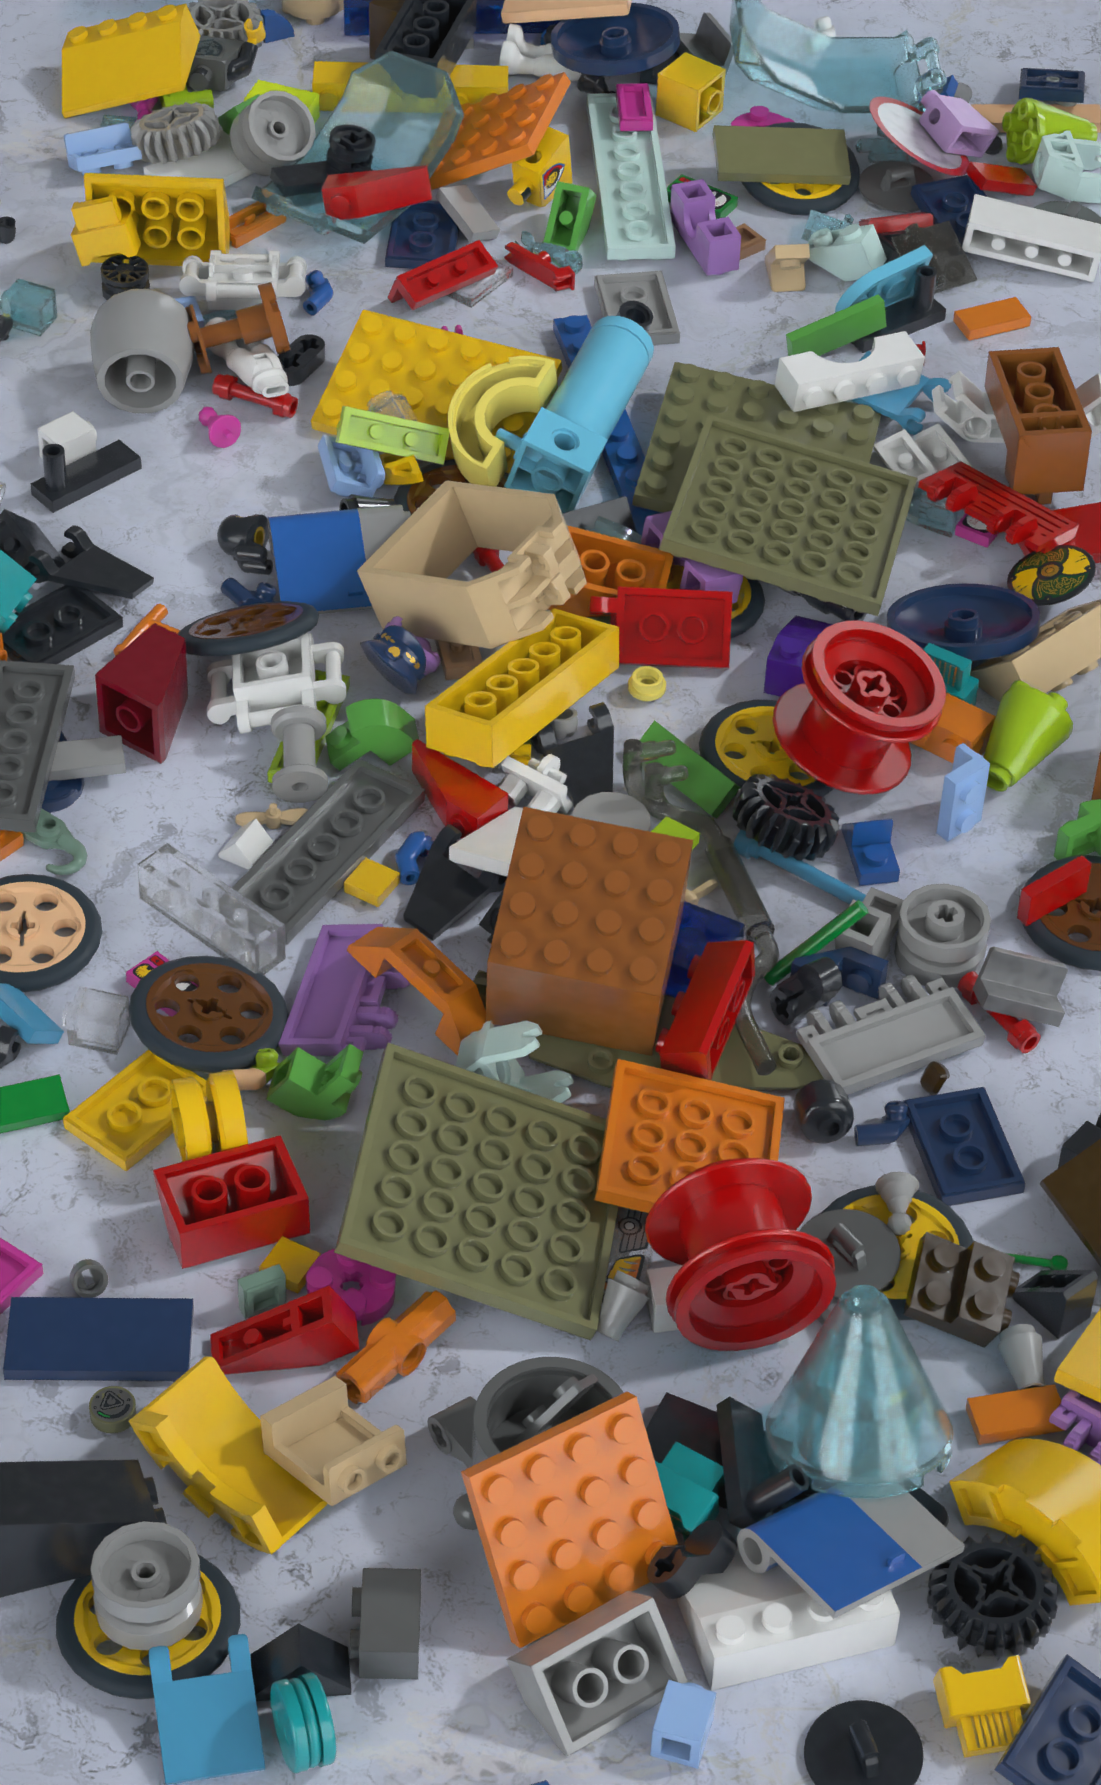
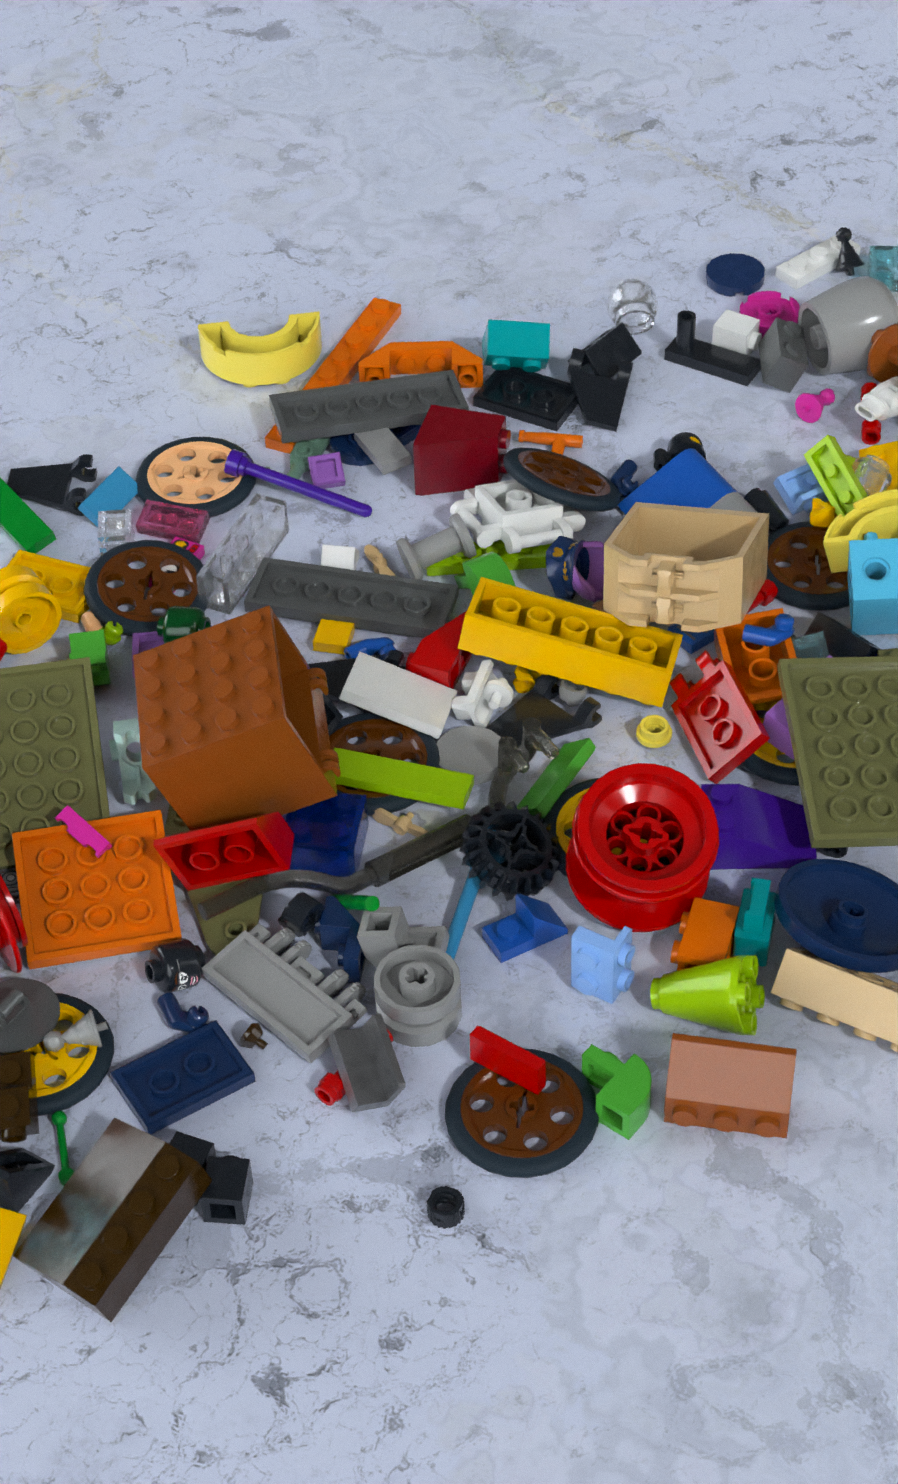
camera: 75 degrees right, 0 degrees up
(26, 408) = (770, 302): none -> dark pink plate
(49, 877) = (239, 464): none -> dark purple piece
(89, 817) = (326, 470): none -> medium lavender tile
(102, 963) = (172, 520): none -> clear pink plate
(136, 415) = (783, 354): none -> dark grey piece
(326, 982) = (180, 622): none -> dark green head
(601, 540) = (772, 635): none -> blue arm
(625, 1126) = (82, 831): none -> dark pink piece

